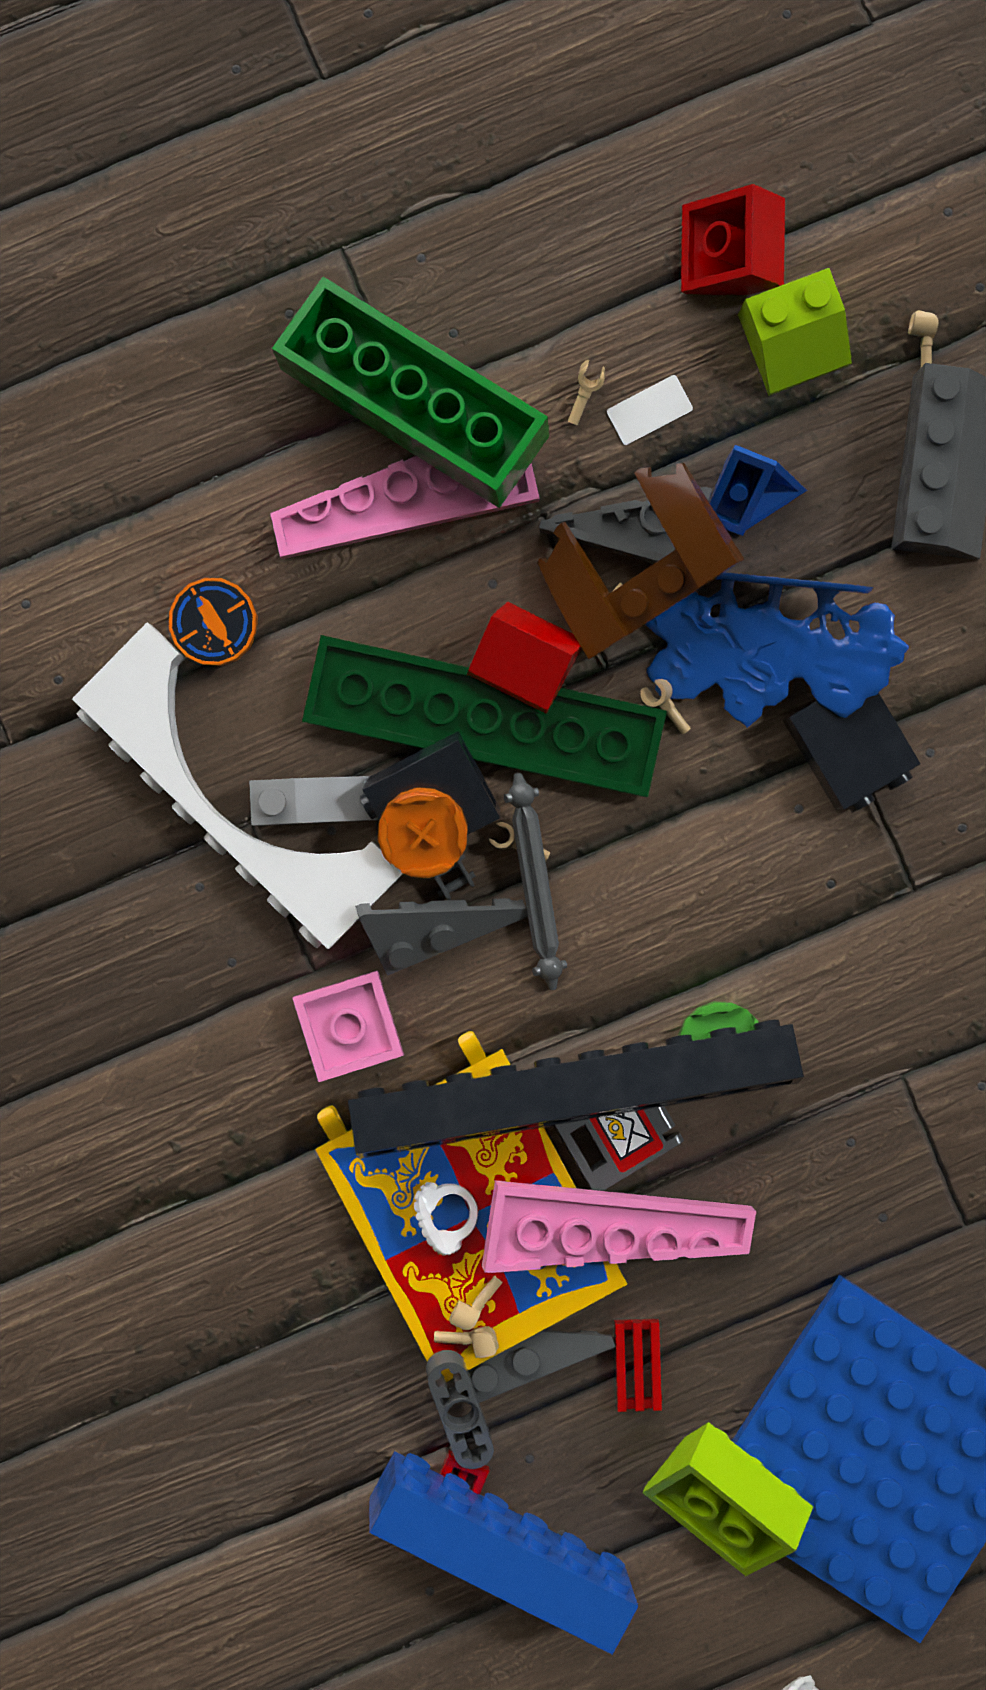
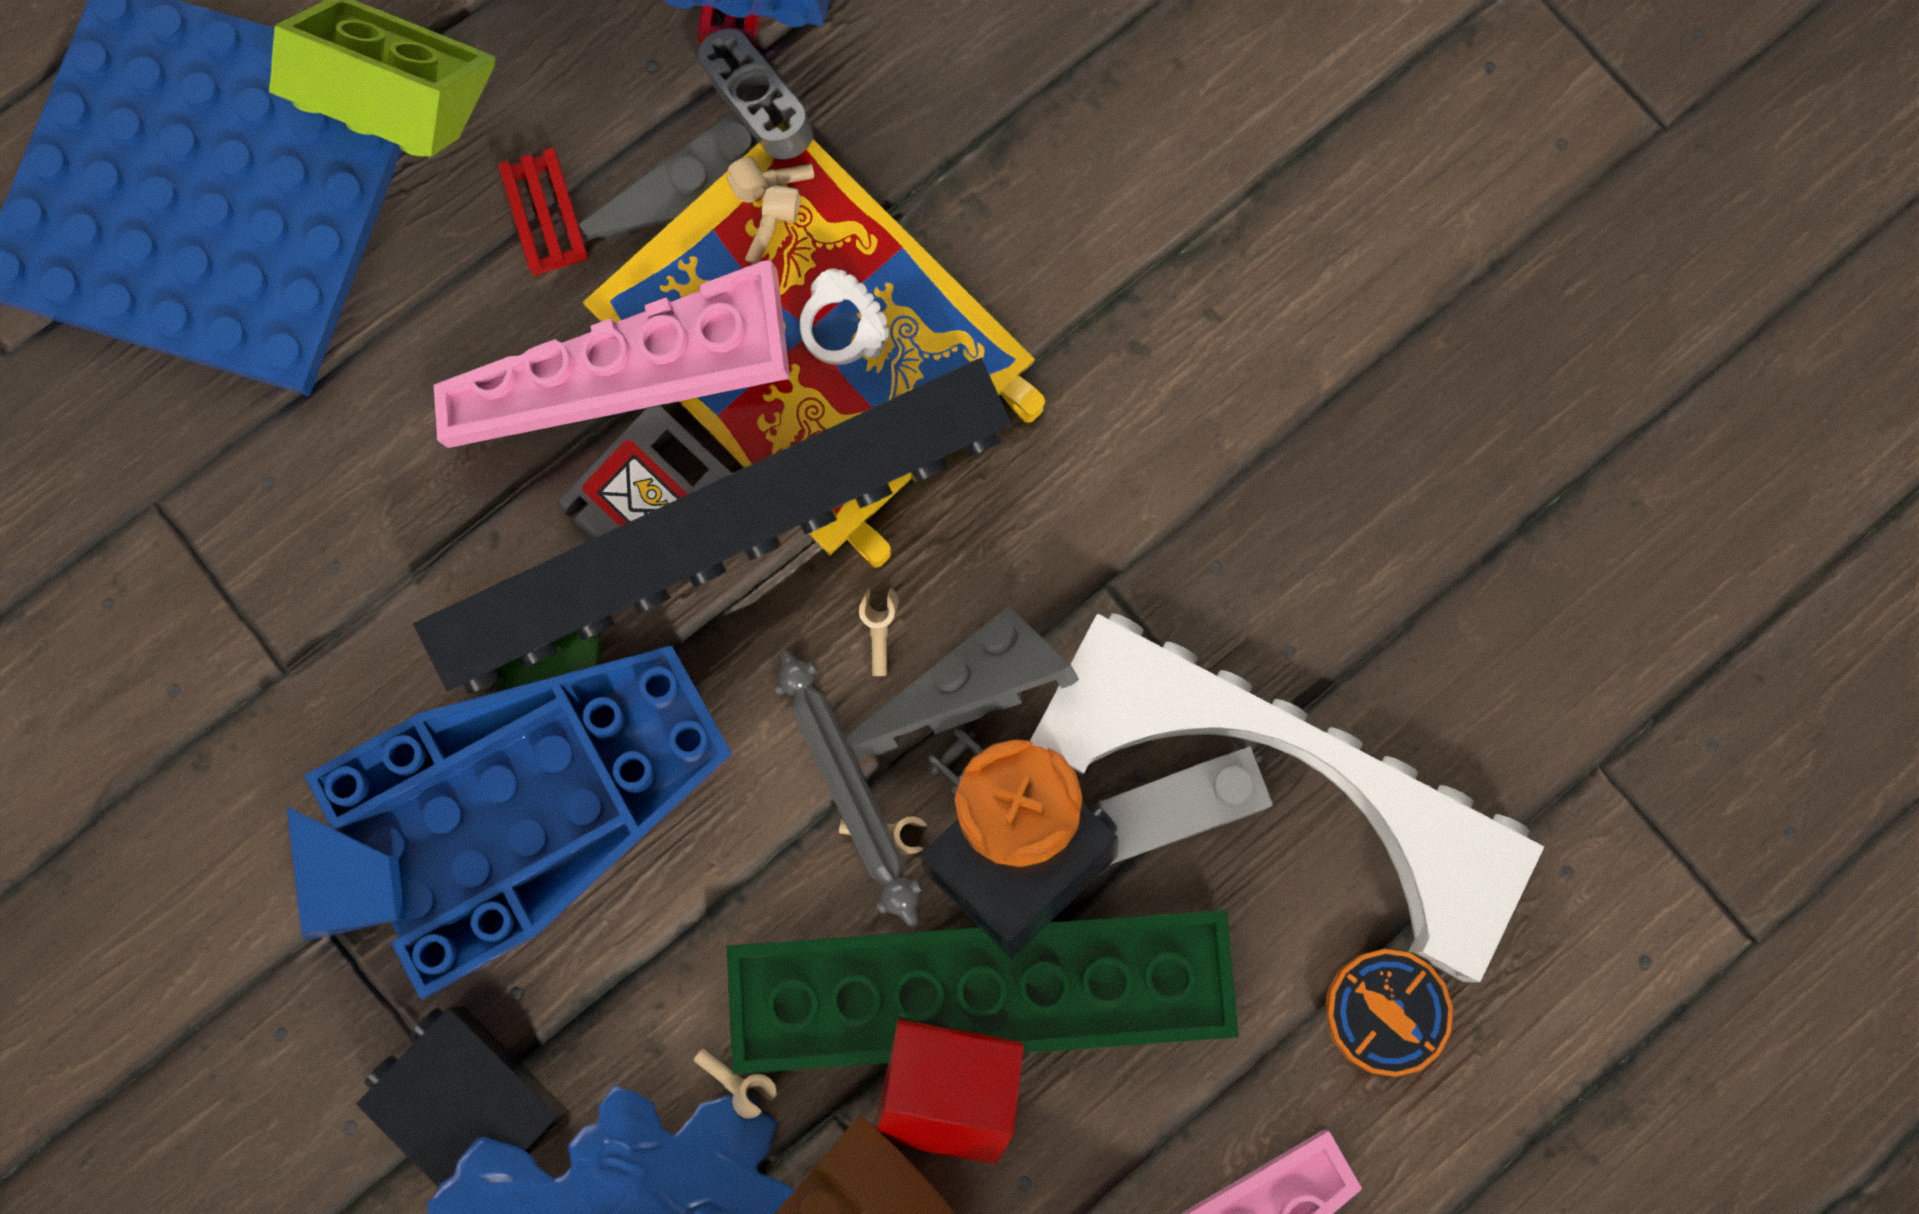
camera: 160 degrees right, 10 degrees down
(348, 1026) = (1039, 526): bright pink plate -> none
(481, 990) = (878, 626): none -> tan hand
(764, 934) = (518, 801): none -> blue wedge
(895, 915) = (341, 880): none -> blue slope

